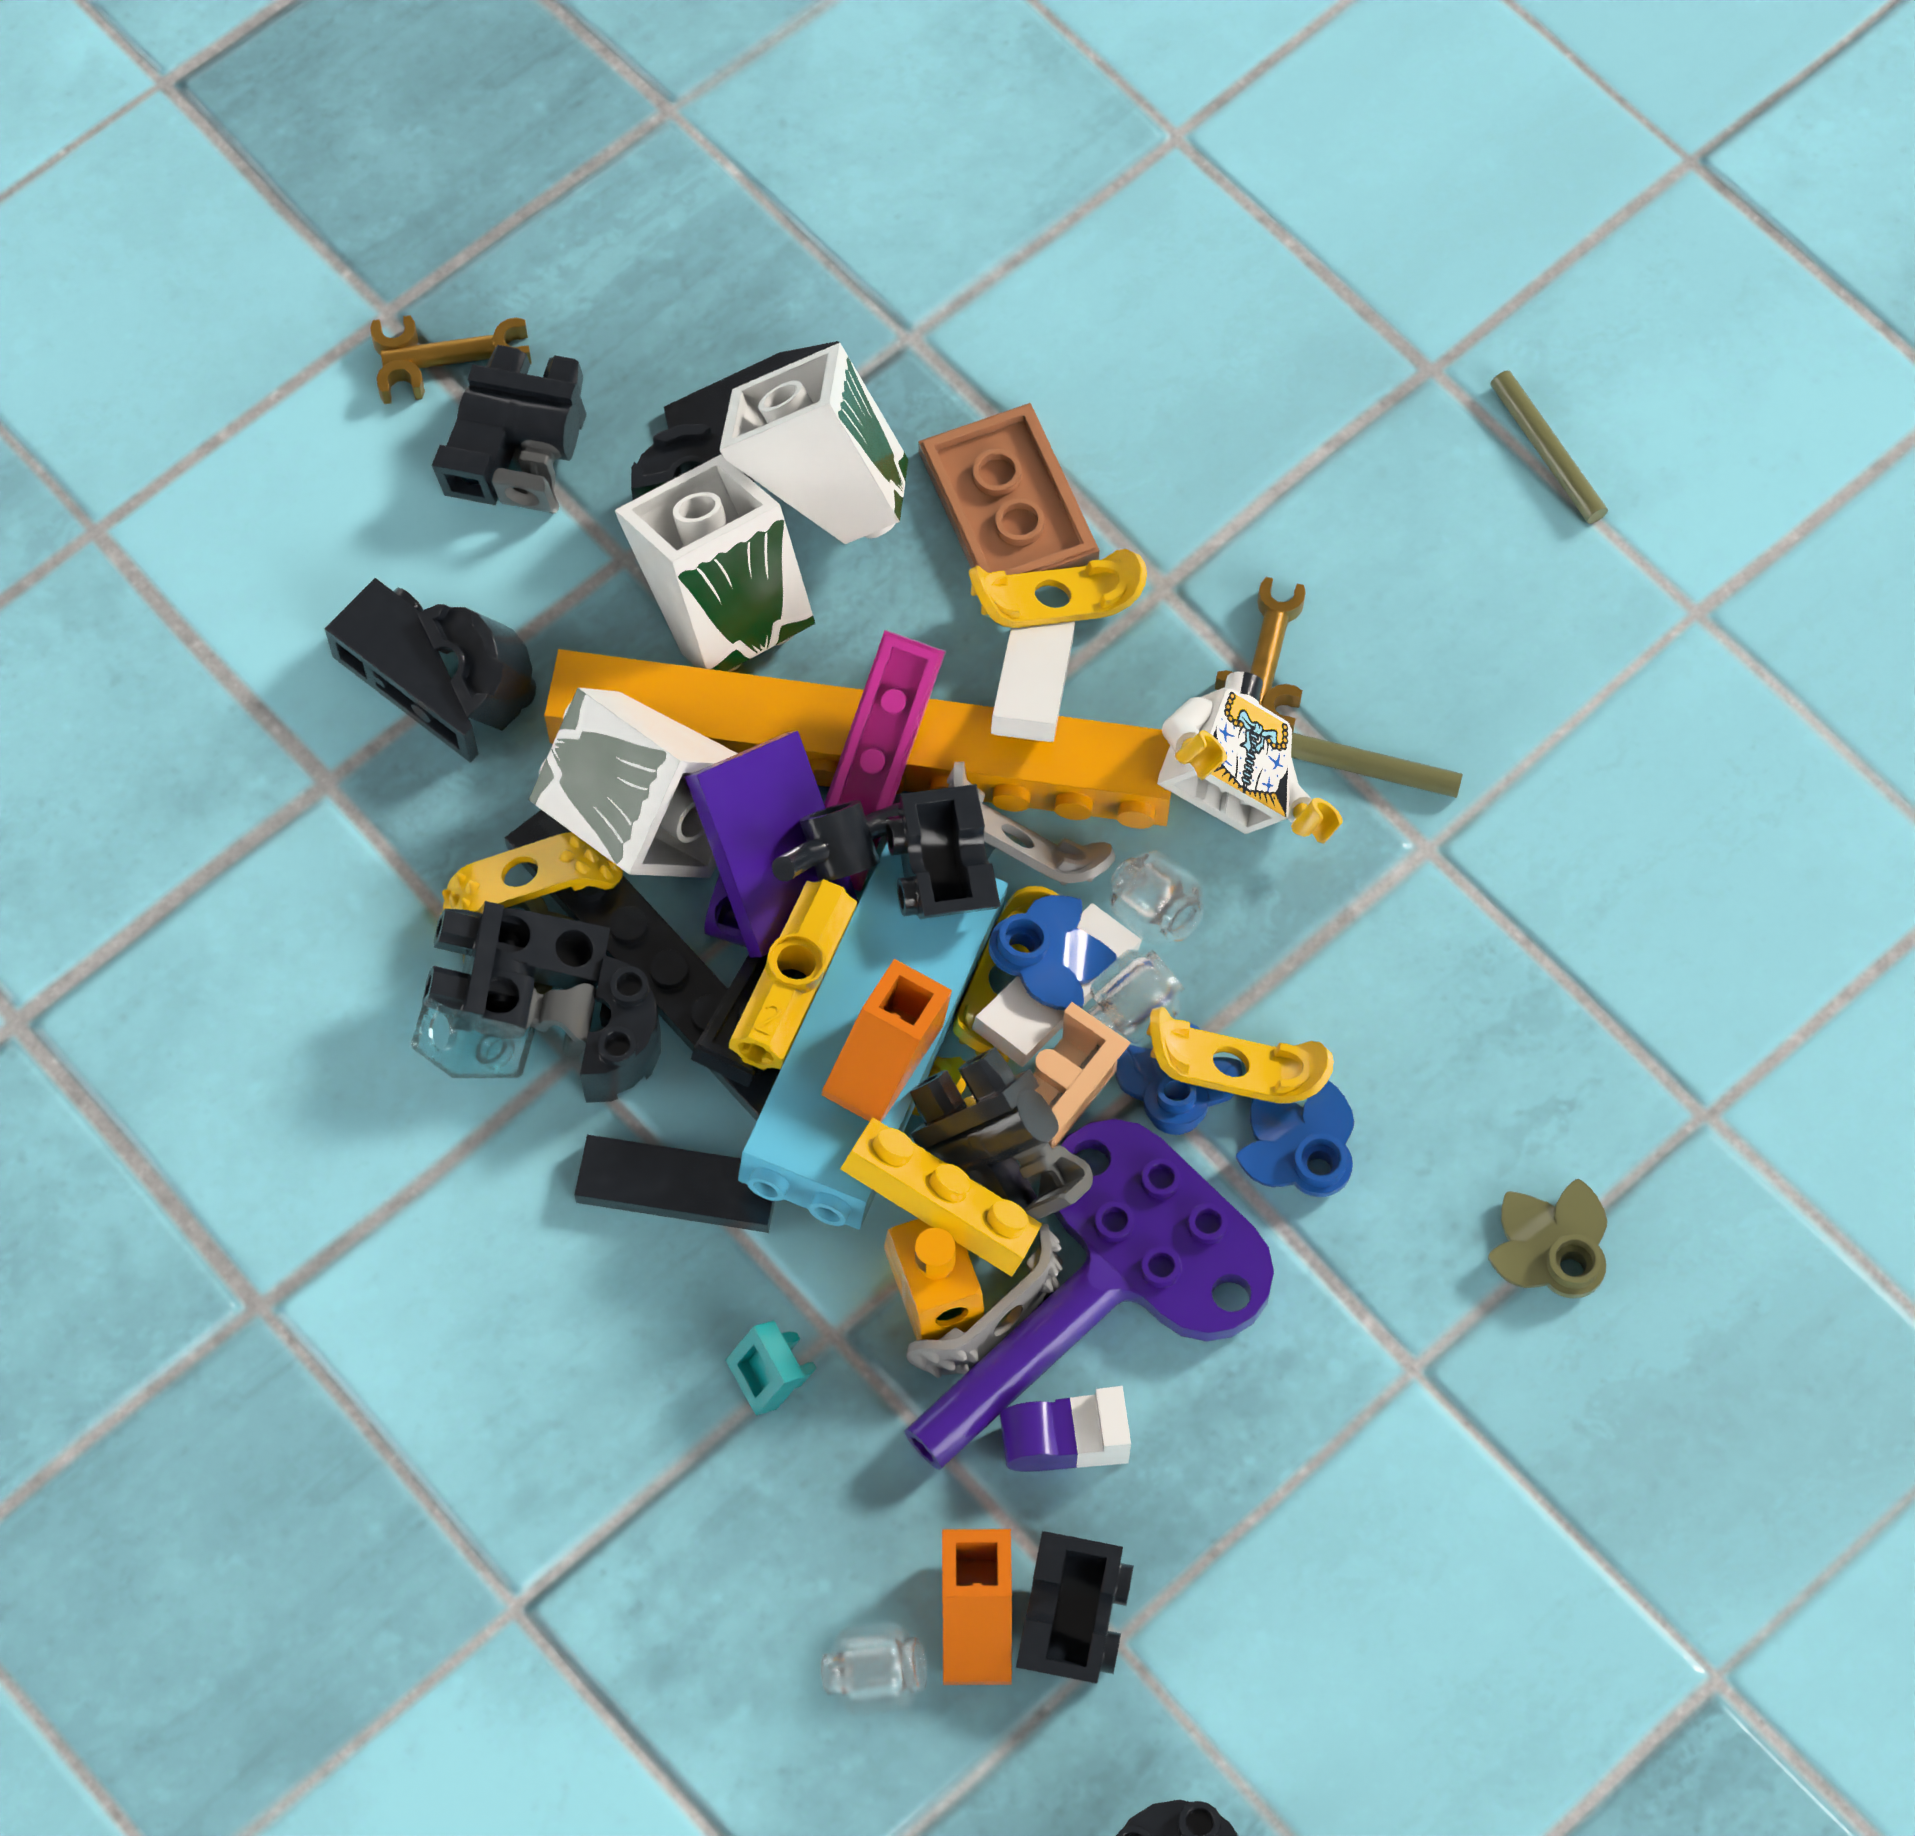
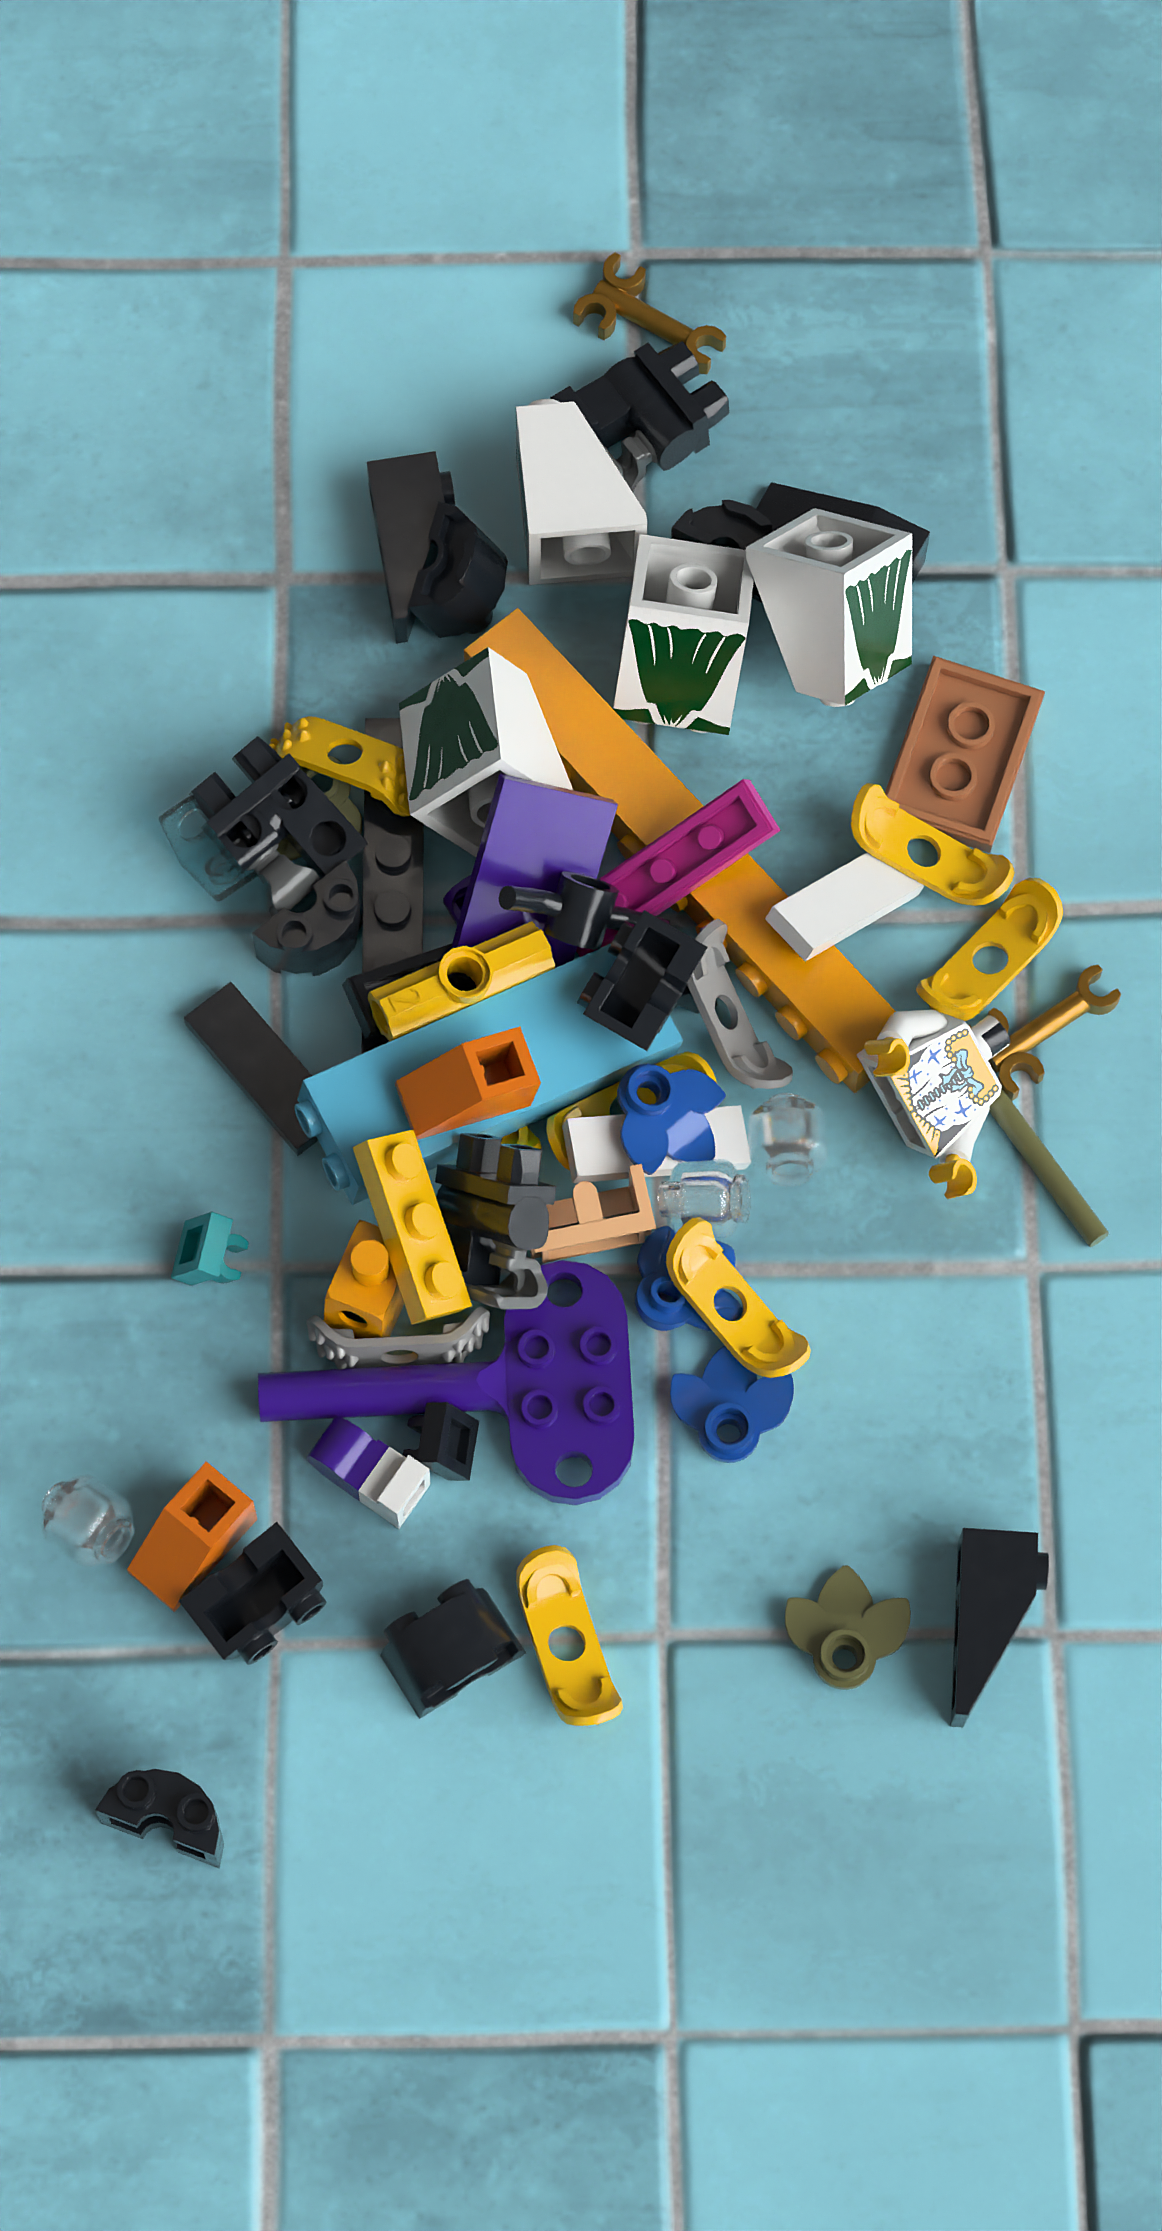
camera: 40 degrees right, 5 degrees up
(524, 530) = (573, 498): none -> white slope
(1108, 1356) = (445, 1440): none -> black tile
(1177, 596) = (1018, 928): none -> yellow piece
(1263, 1523) = (448, 1646): none -> black cylinder
(1307, 1412) = (554, 1599): none -> yellow piece
(1646, 1127) = (993, 1595): none -> black slope

